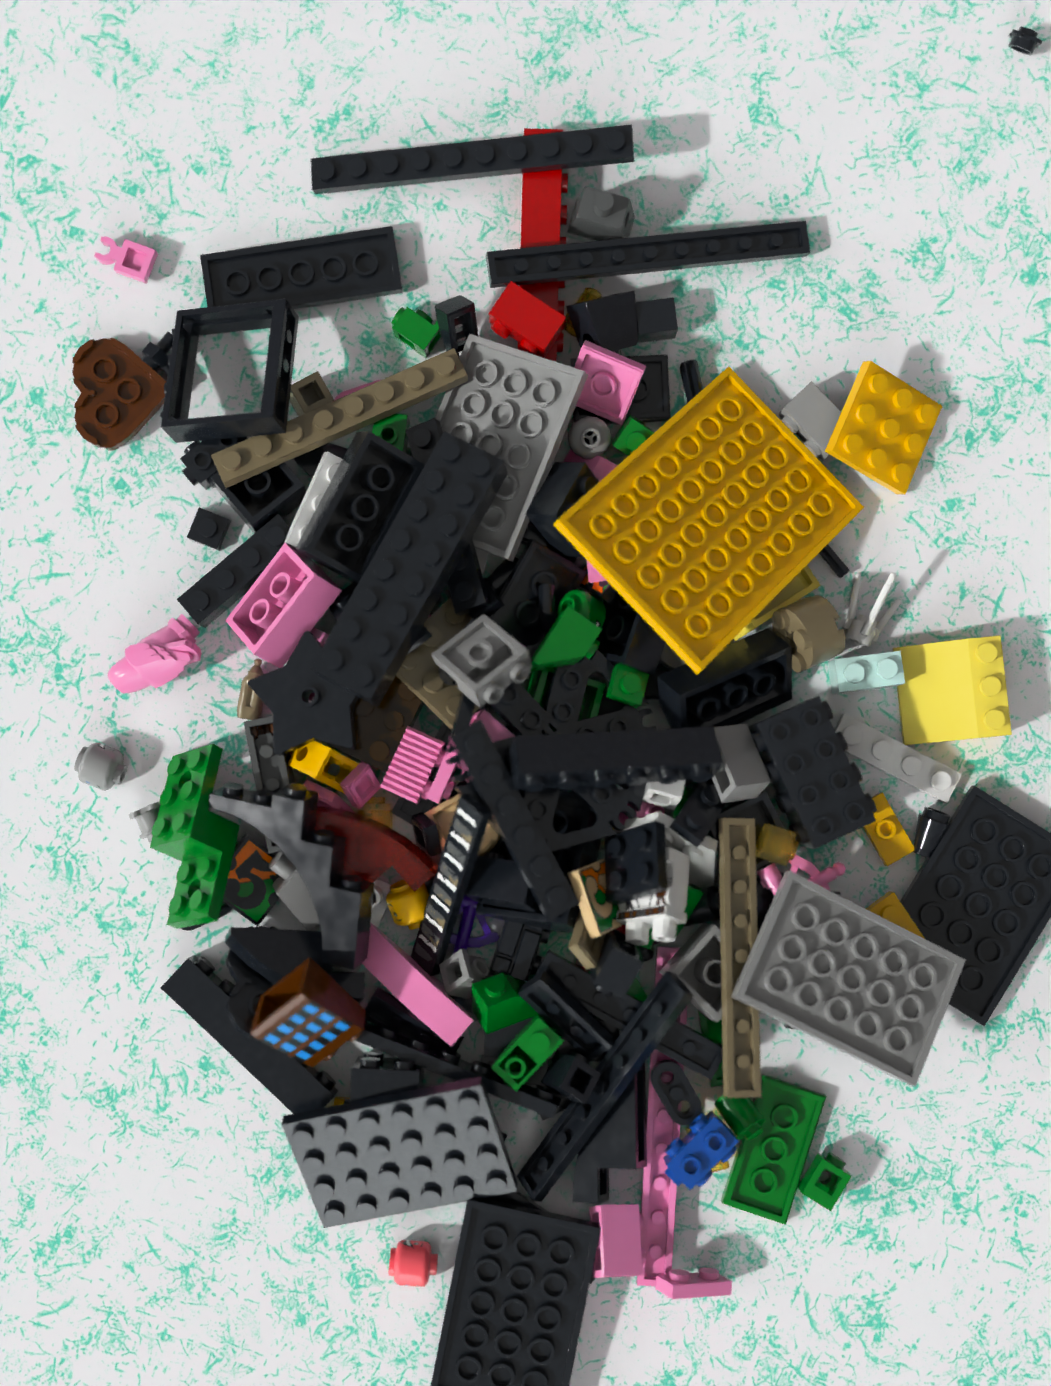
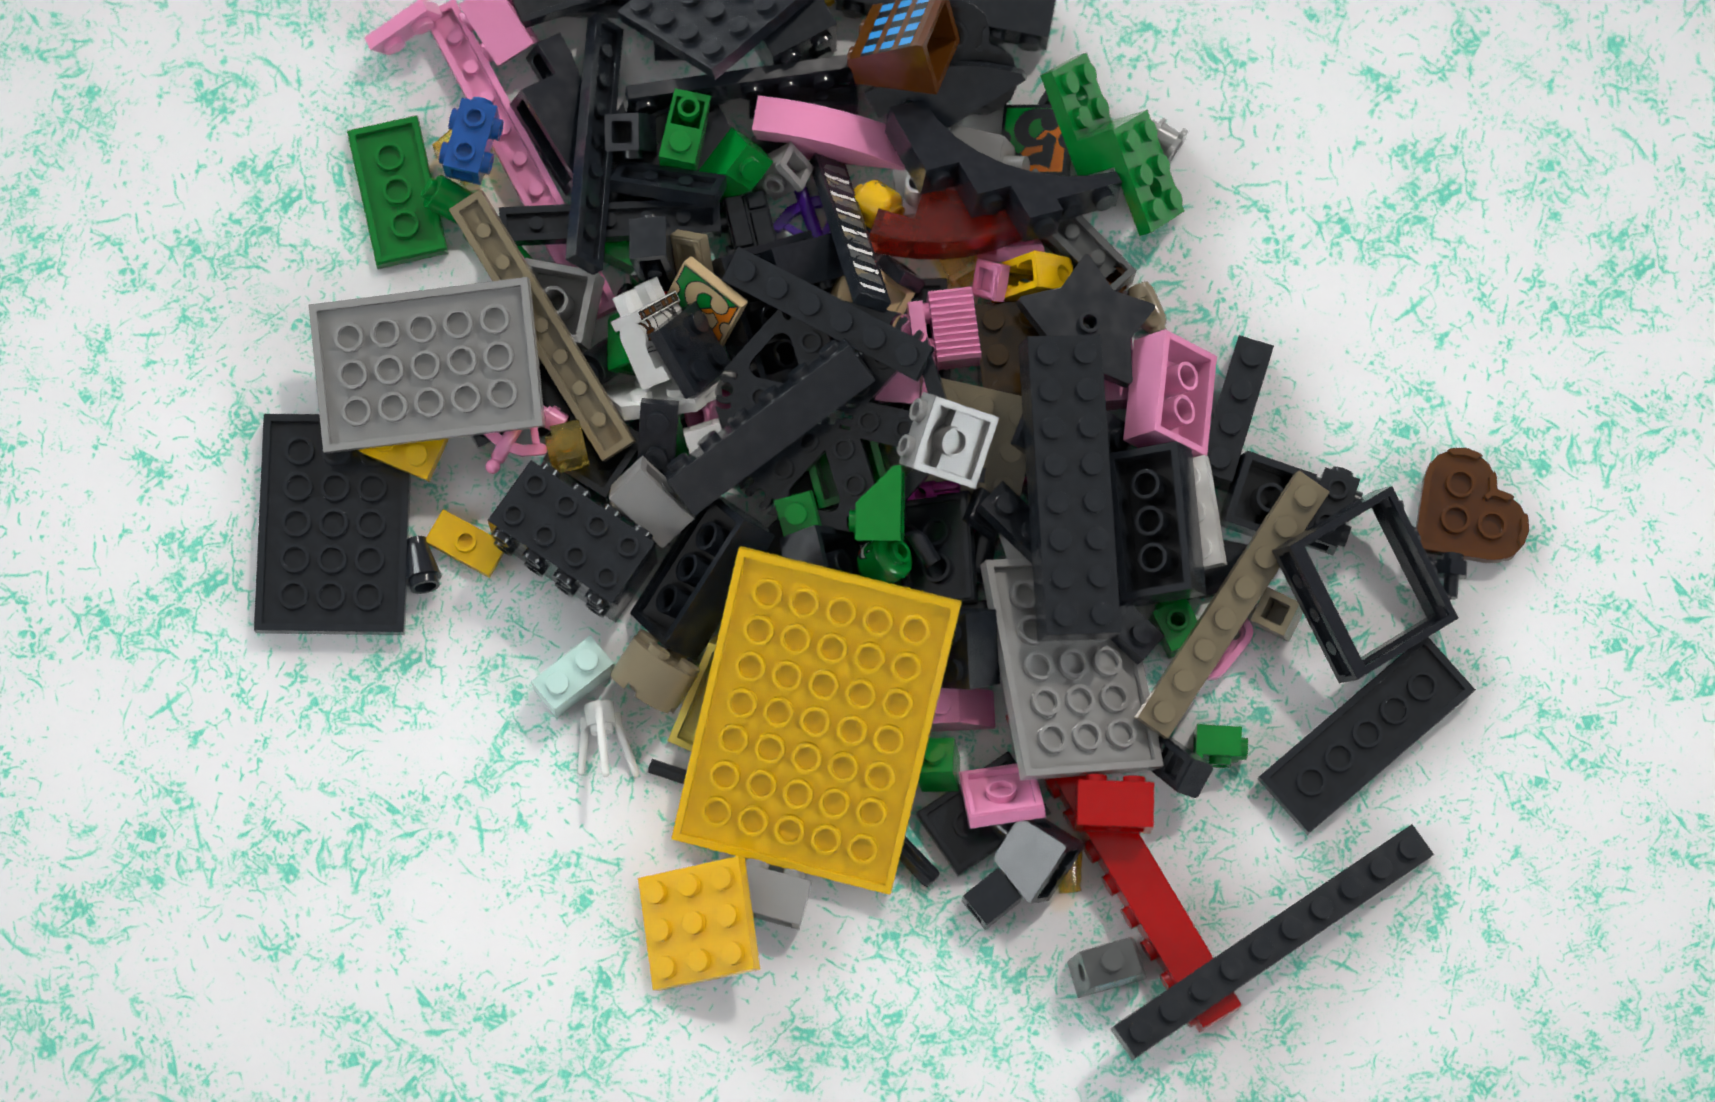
camera: 145 degrees right, 10 degrees down
(100, 766) = (1244, 161): light grey head -> none
(131, 260) = (1538, 647): bright pink plate -> none
(157, 657) = (1257, 287): bright pink animal -> none
(209, 529) = (1292, 438): black plate -> none
(577, 434) = (983, 739): light grey head -> none
(647, 254) = (1037, 953): black plate -> none
(675, 1091) = (525, 181): black plate -> none
(828, 1191) = (332, 177): green brick -> none
(898, 759) = (495, 616): white plate -> none
(953, 691) = (478, 711): light yellow slope -> none

